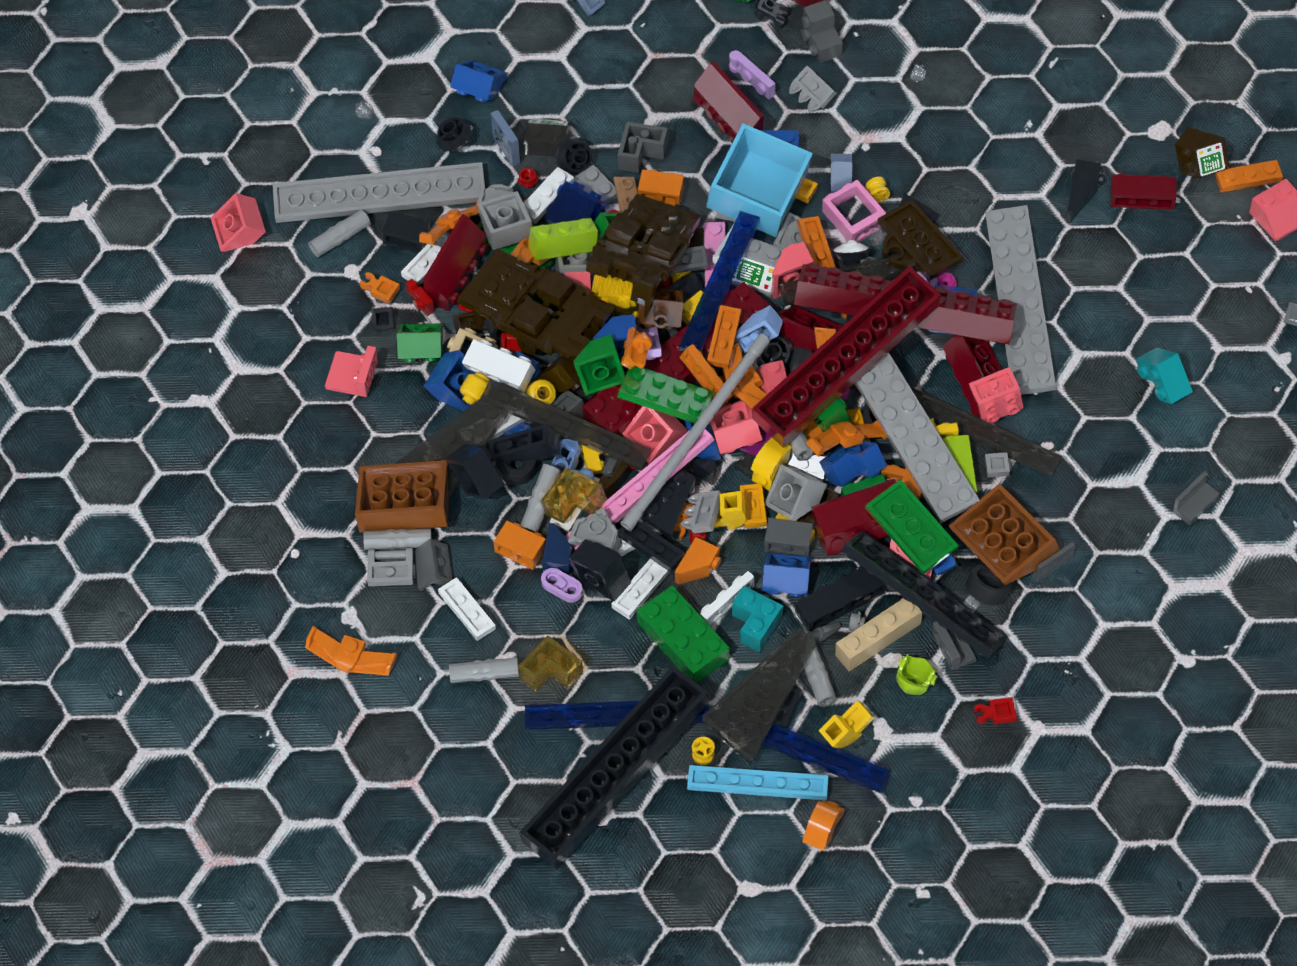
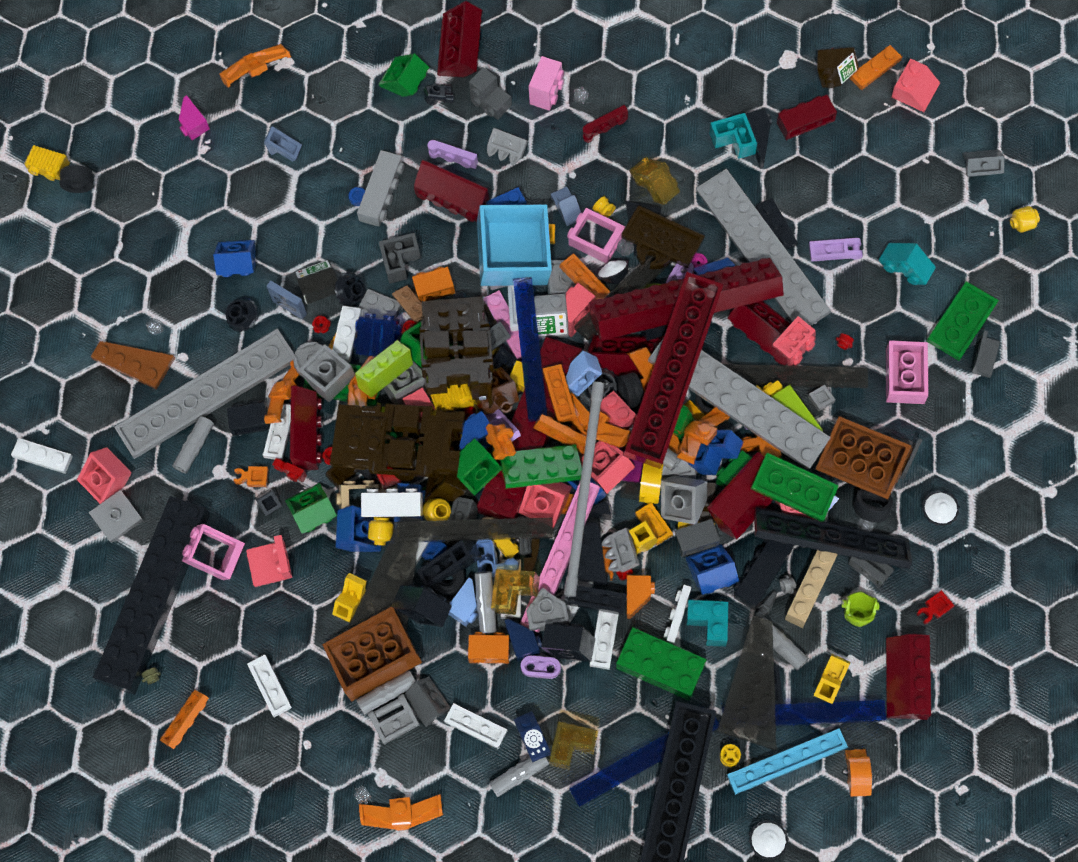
camera: 25 degrees left, 10 degrees up
(181, 422) = (151, 675): none -> olive plate
(189, 181) = (41, 455): none -> white plate
(190, 475) = (184, 719): none -> orange plate
(222, 350) = (150, 598): none -> black brick
(228, 266) = (115, 516): none -> light grey plate
(288, 482) = (269, 686): none -> white plate
(317, 325) = (230, 558): none -> bright pink window
(320, 619) = (362, 795): none -> clear plate
(326, 136) = (136, 363): none -> dark orange wing
(408, 438) = (349, 599): none -> yellow brick
(514, 639) = (532, 736): none -> dark blue slope
(517, 492) = (464, 604): none -> light blue slope
(634, 75) = (356, 196): none -> blue tile
(660, 76) = (380, 188): none -> light grey brick
(694, 842) = (768, 840): none -> white piece
(885, 45) = (546, 83): none -> bright pink brick
(926, 110) = (605, 123): none -> dark red plate
(929, 762) = (908, 677): none -> dark red slope
(946, 183) = (656, 178): none -> clear yellow brick
(1050, 281) = (777, 223): none -> black plate
(1053, 422) = (844, 341): none -> red plate
(1054, 172) = (734, 131): none -> teal brick
(1057, 620) = (940, 508): none -> white piece
(1097, 331) = (835, 249): none -> lavender plate
(1099, 477) = (907, 372): none -> bright pink brick
(1191, 456) = (962, 321): none -> green plate

